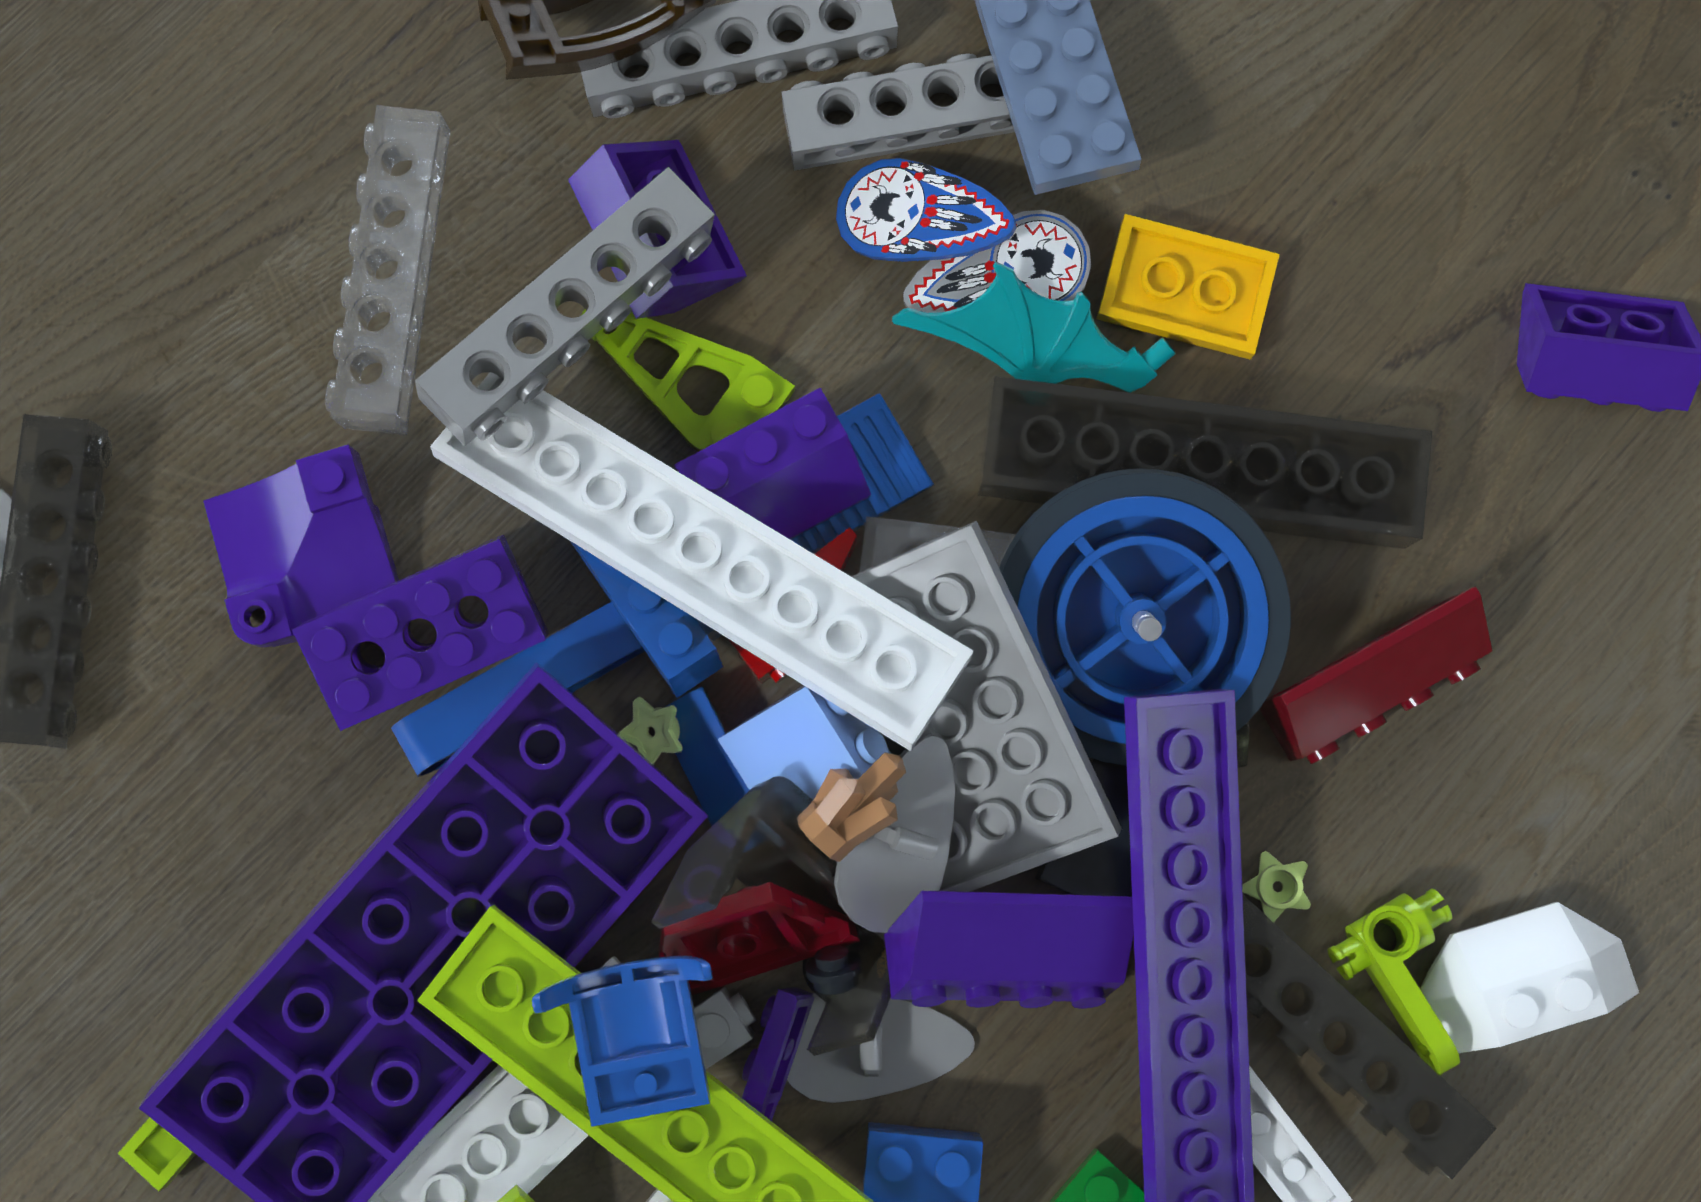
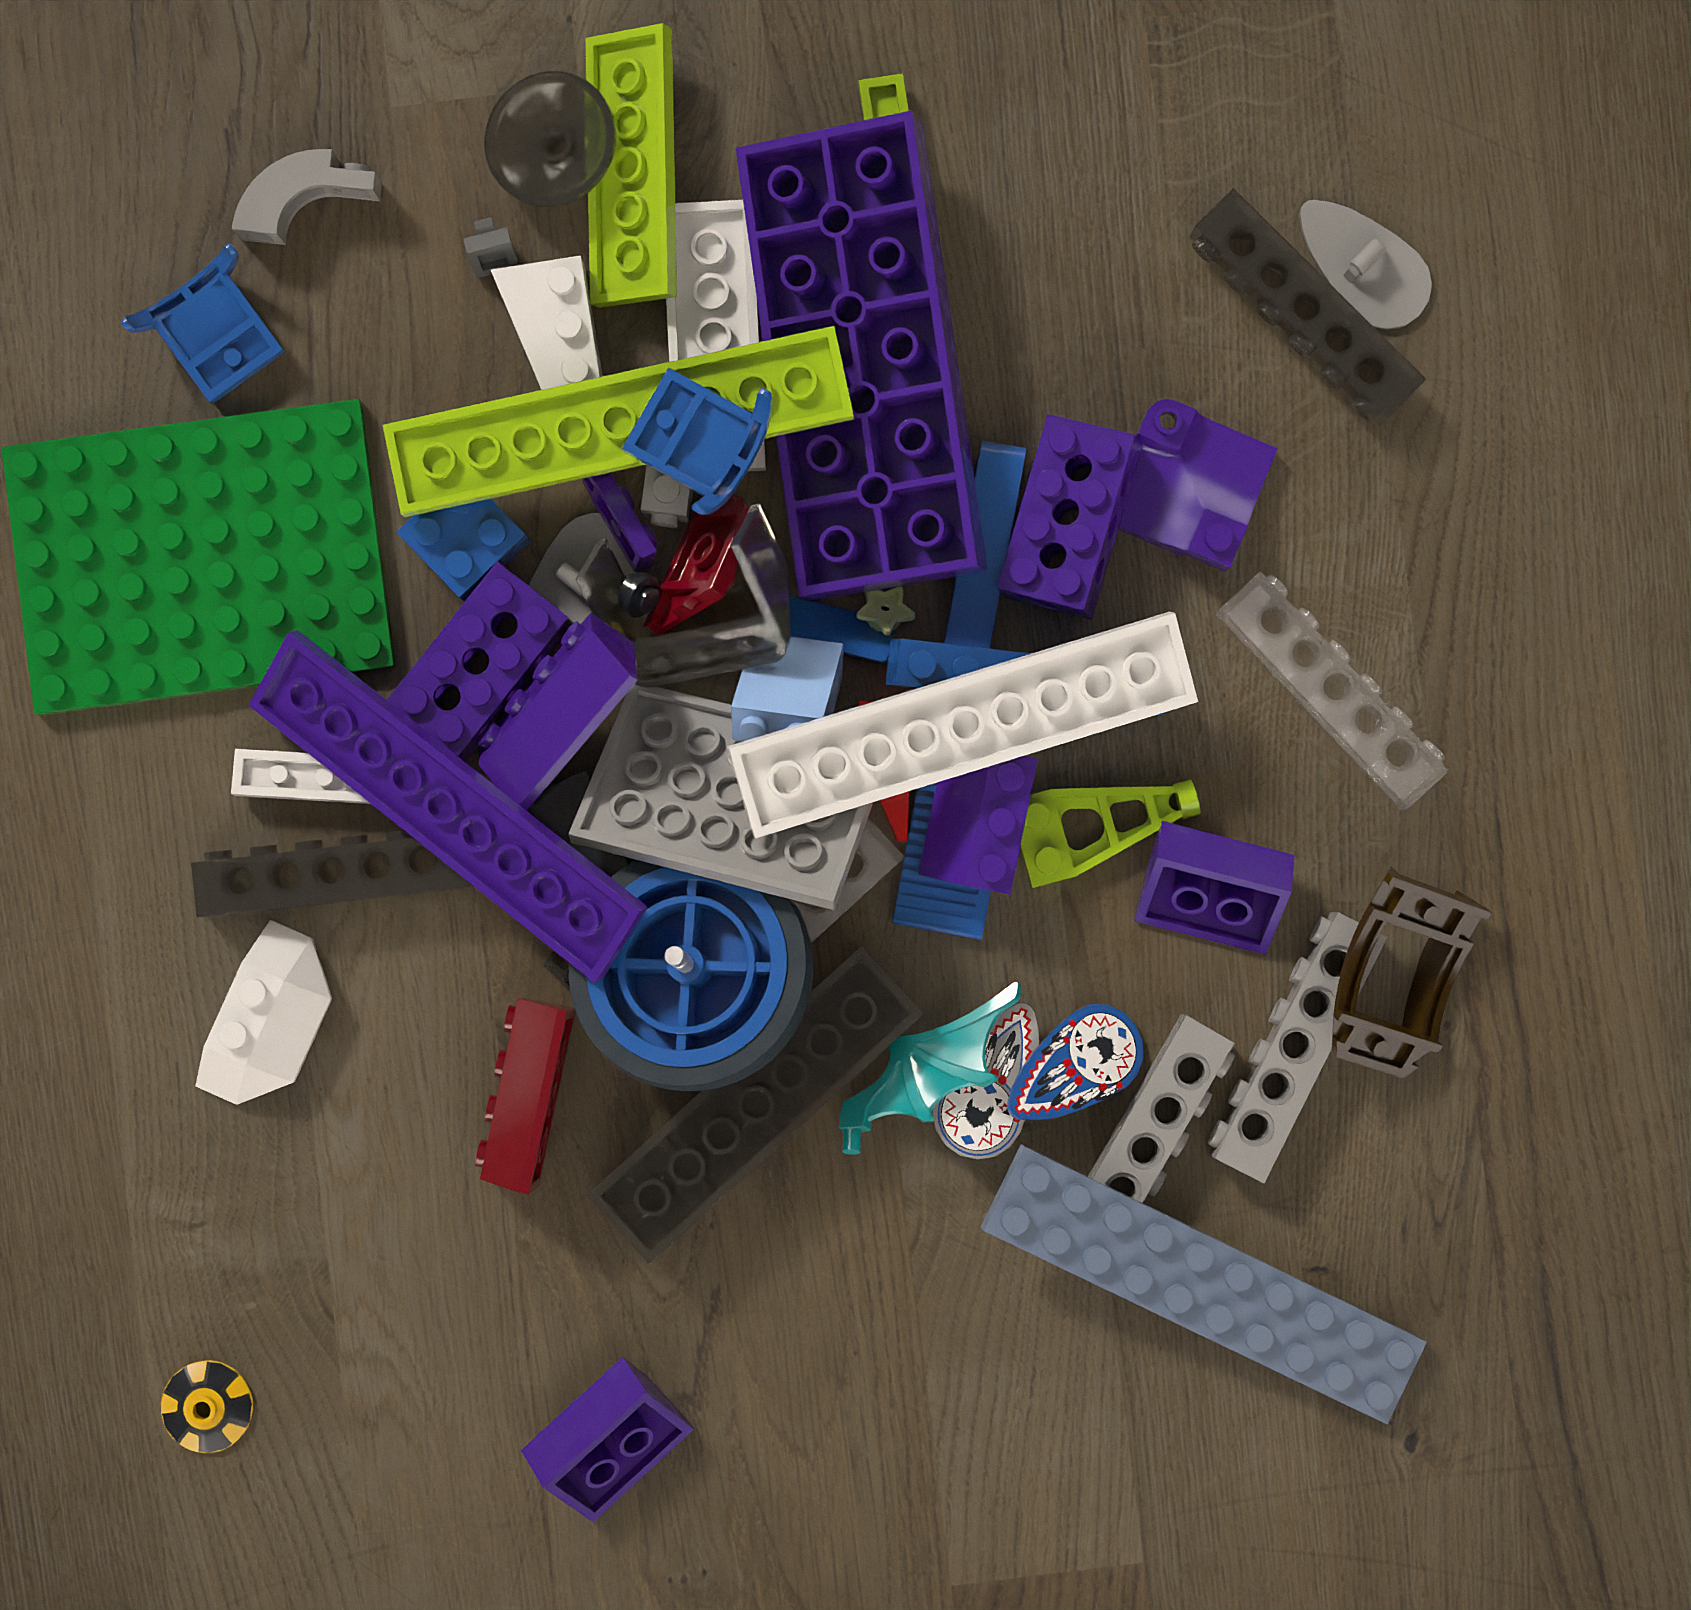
camera: 130 degrees right, 5 degrees up
(662, 208) = (1212, 891): light grey brick -> none
(851, 808) = (724, 680): medium nougat rock -> none
(910, 854) = (682, 700): light grey shield -> none
(1049, 1098) = (470, 634): none -> dark purple brick
(1188, 286) = (880, 1201): yellow plate -> none
(1288, 875) = (441, 924): yellowish green plate -> none
(1413, 927) = (358, 980): lime piece -> none

